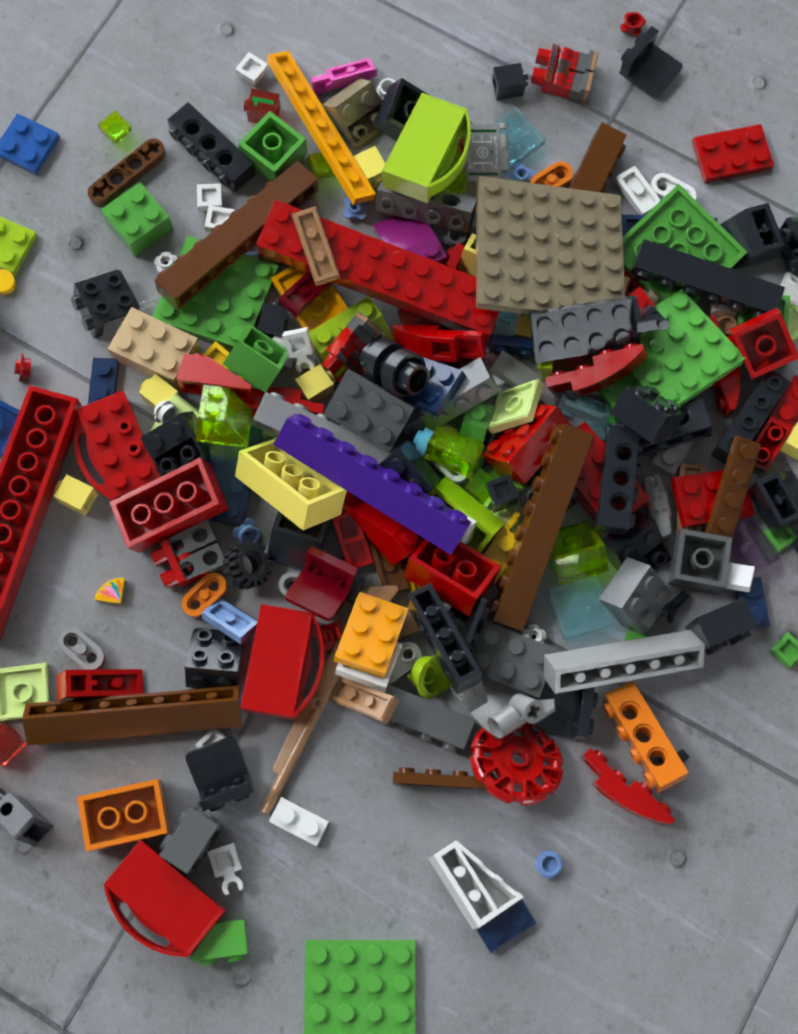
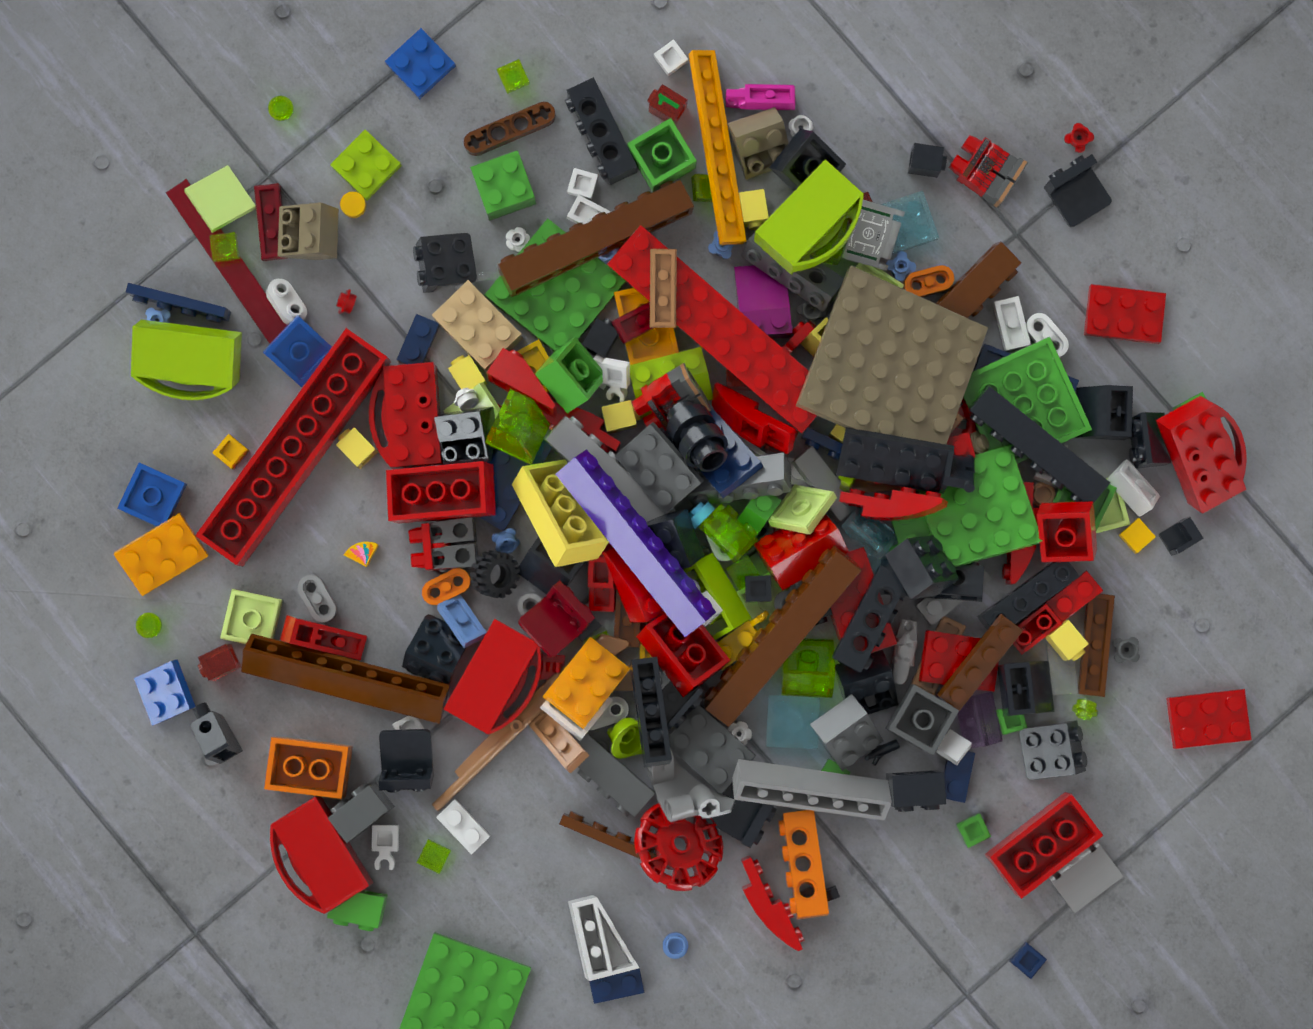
camera: 20 degrees right, 10 degrees up
(279, 862) = (433, 856): none -> clear neon green tile

